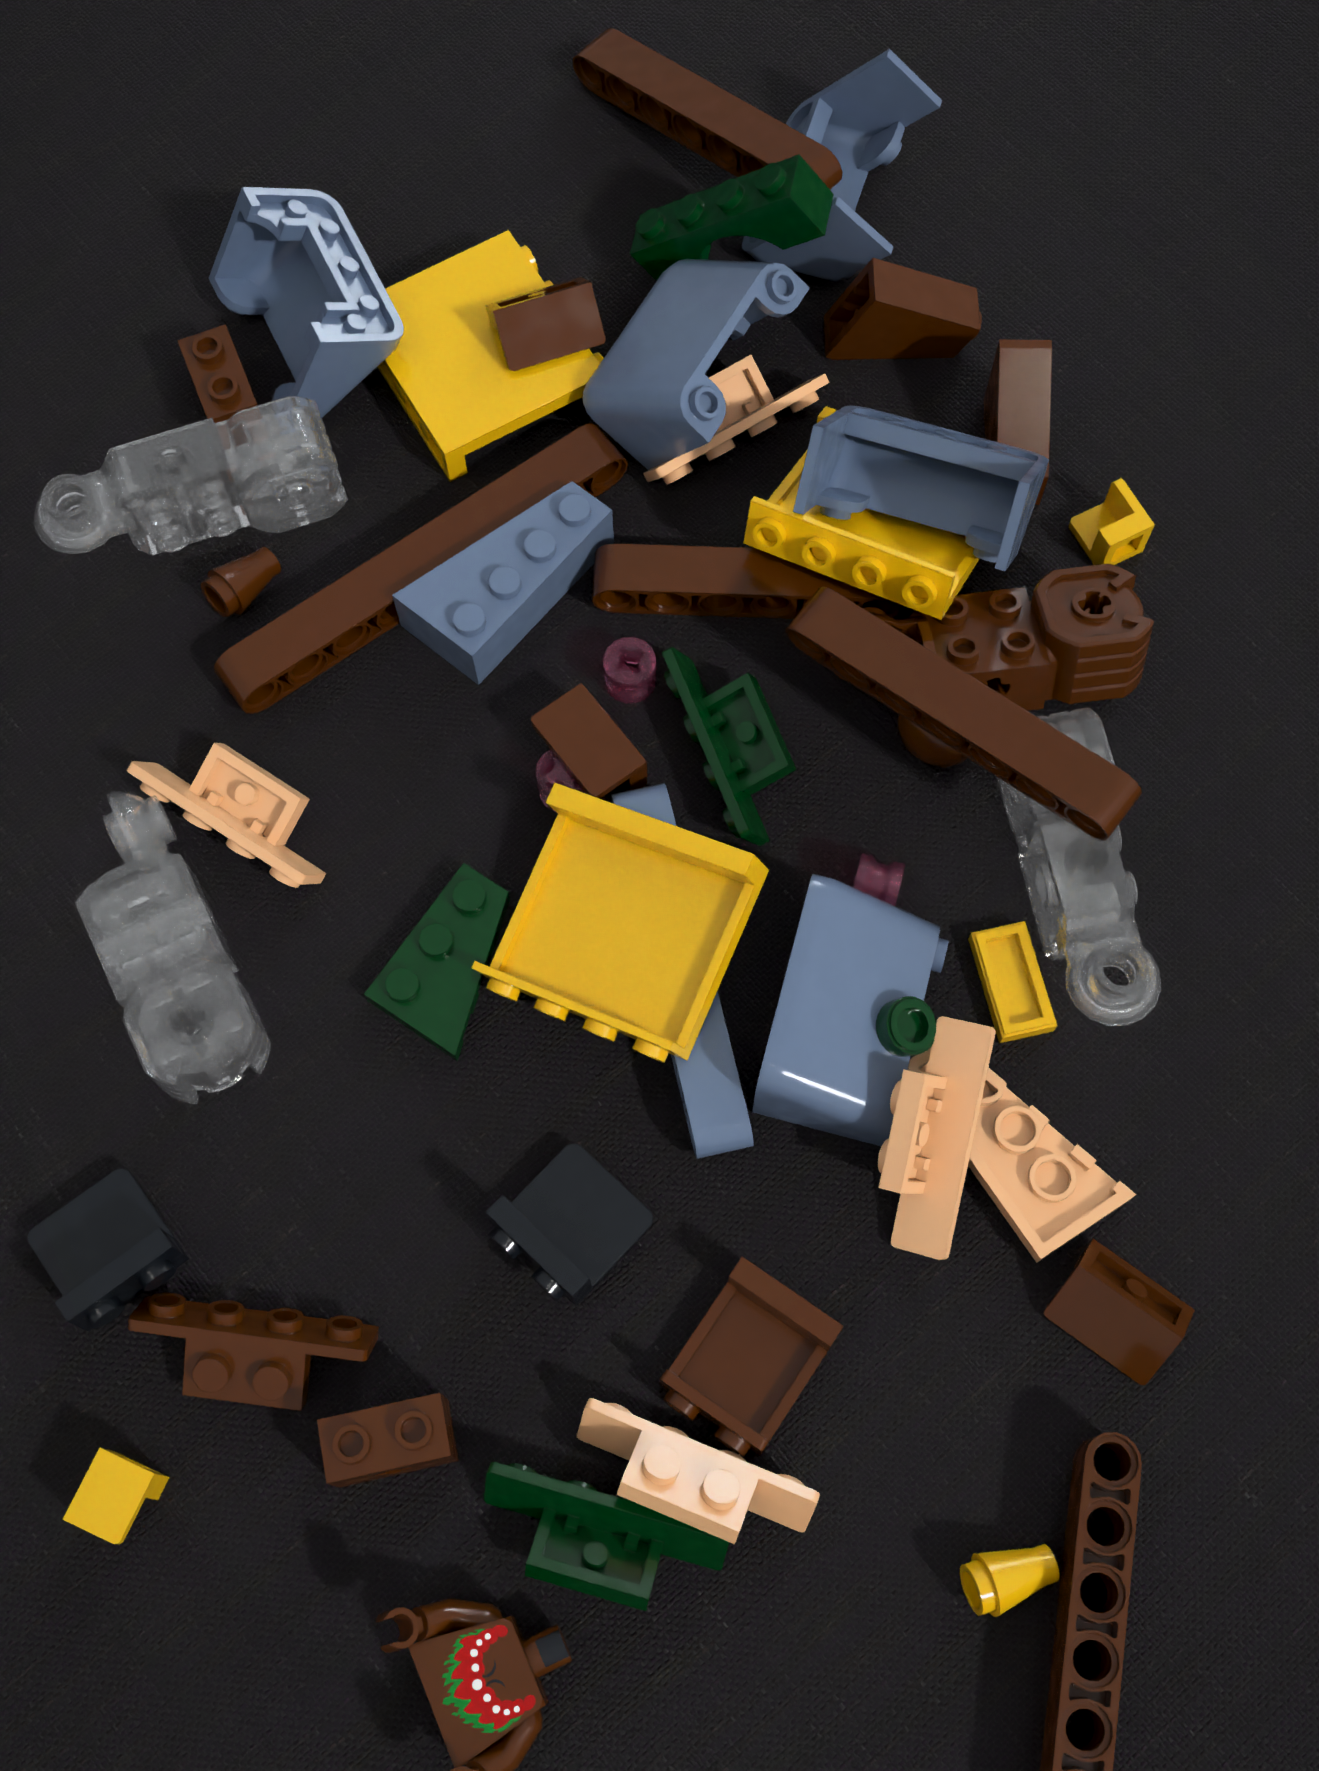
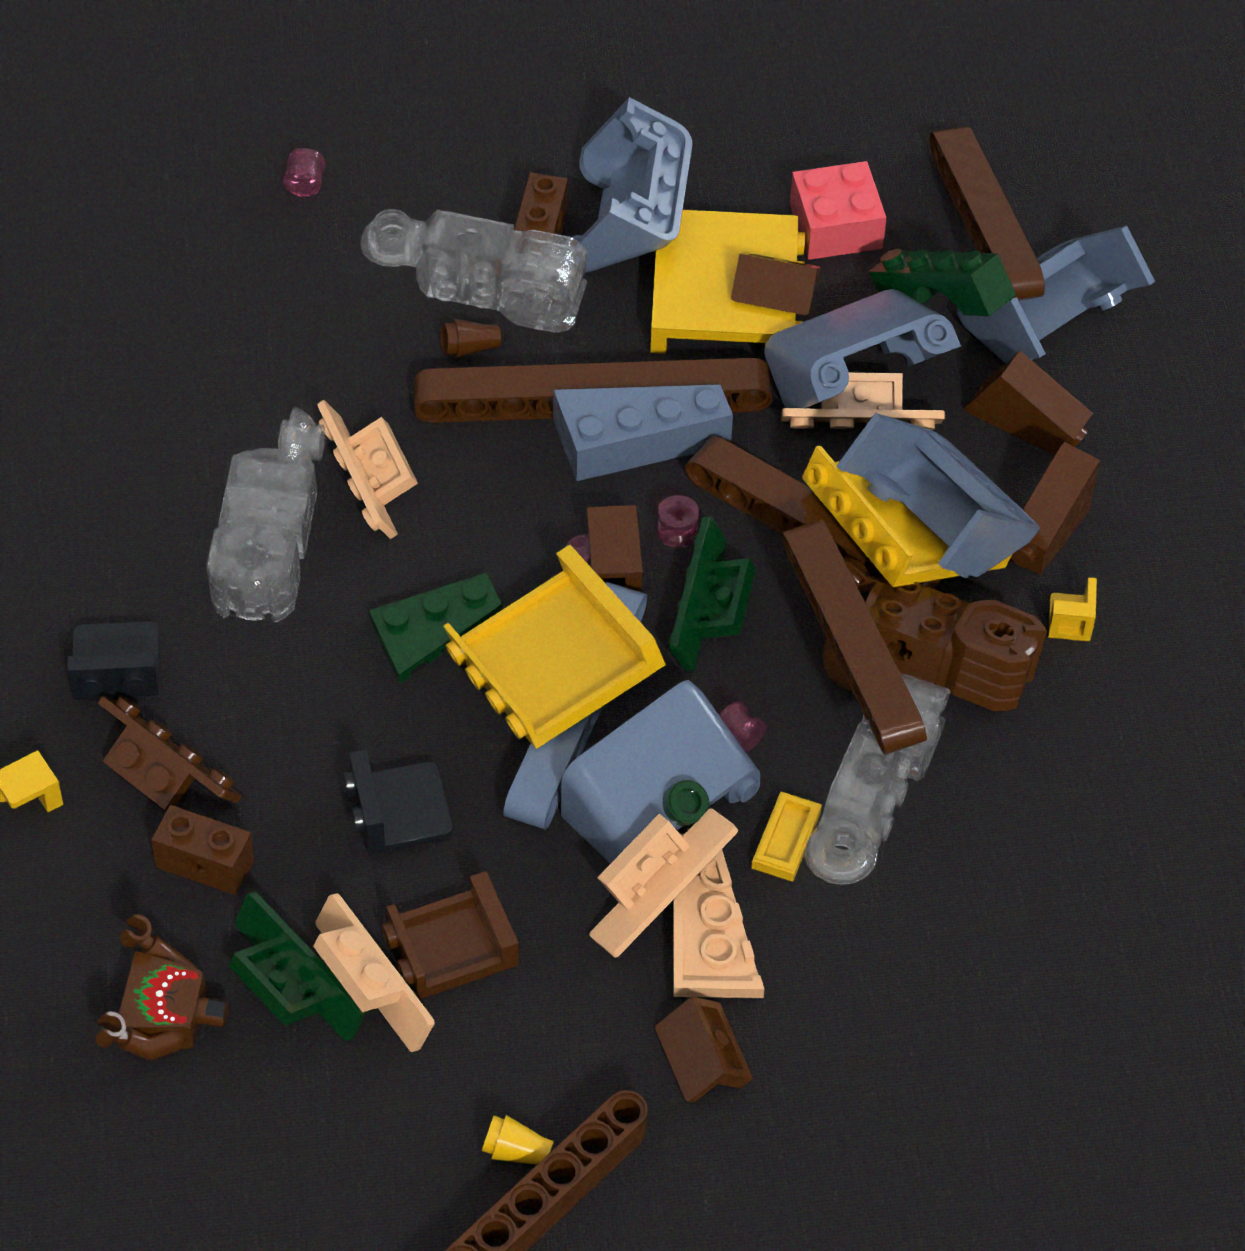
camera: 30 degrees right, 15 degrees down
(541, 197) = (838, 210): none -> coral brick

